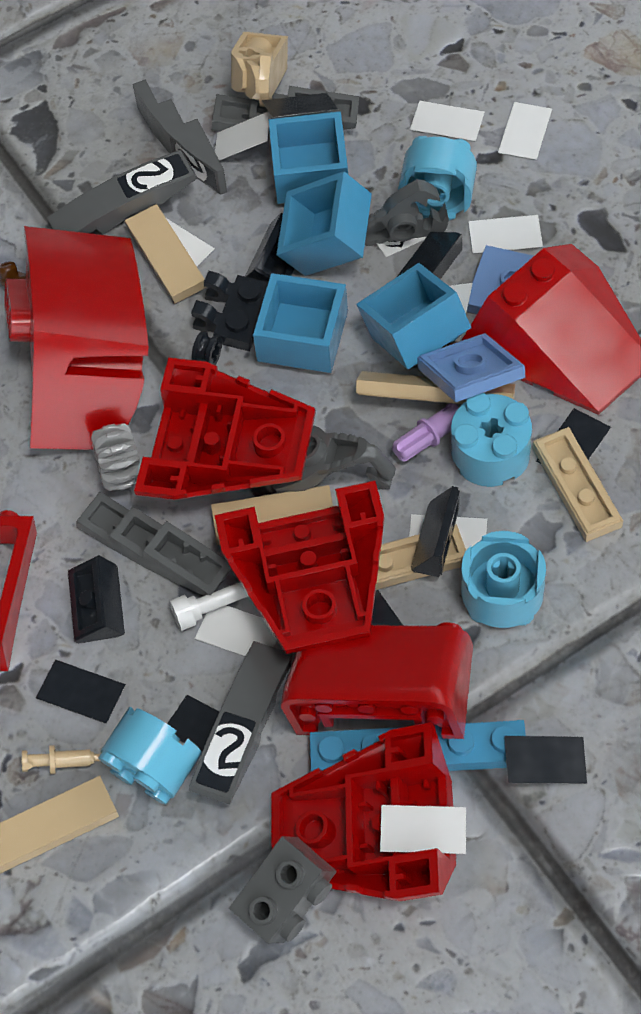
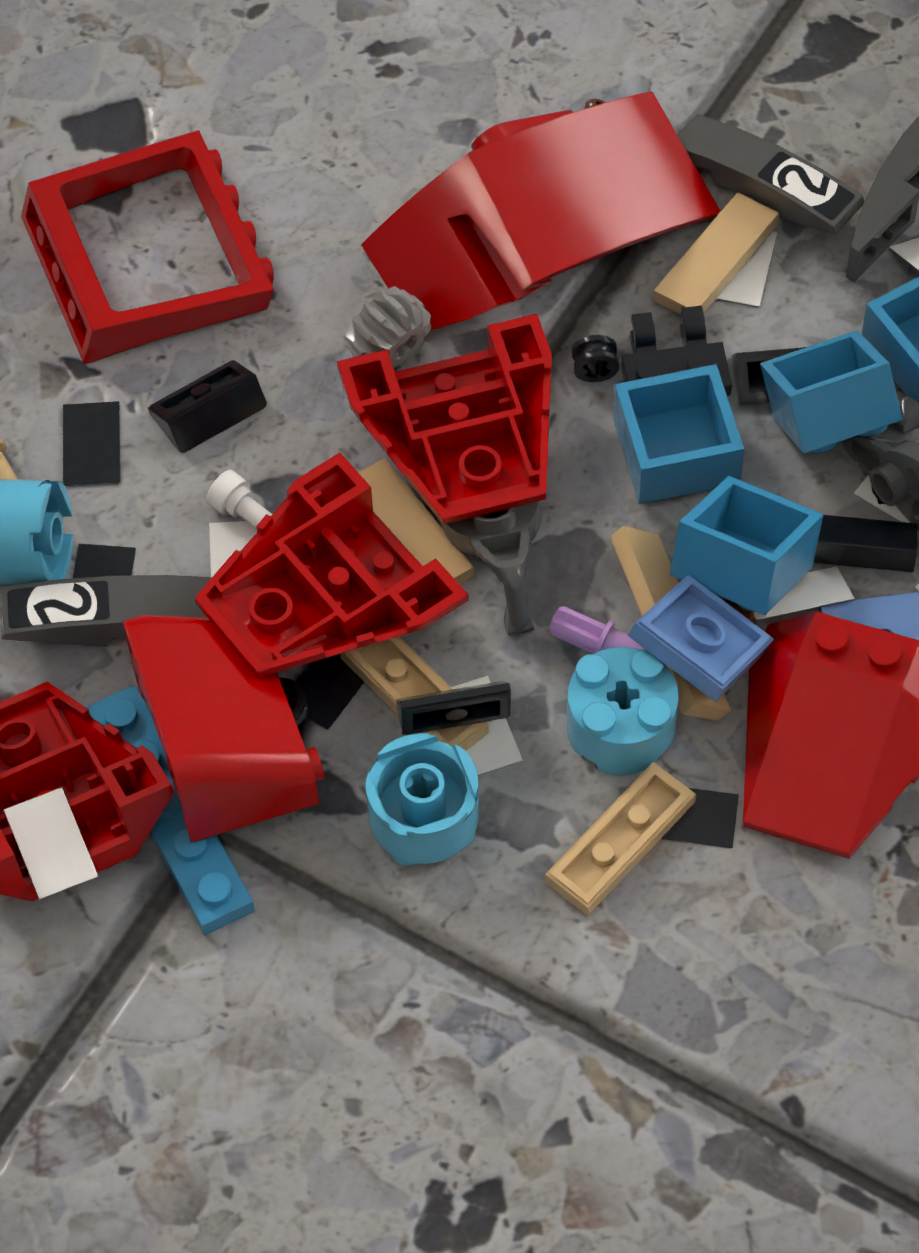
camera: 60 degrees right, 0 degrees up
(153, 545) = (303, 415): dark grey slope -> none
(545, 759) = (211, 946): black sticker -> none

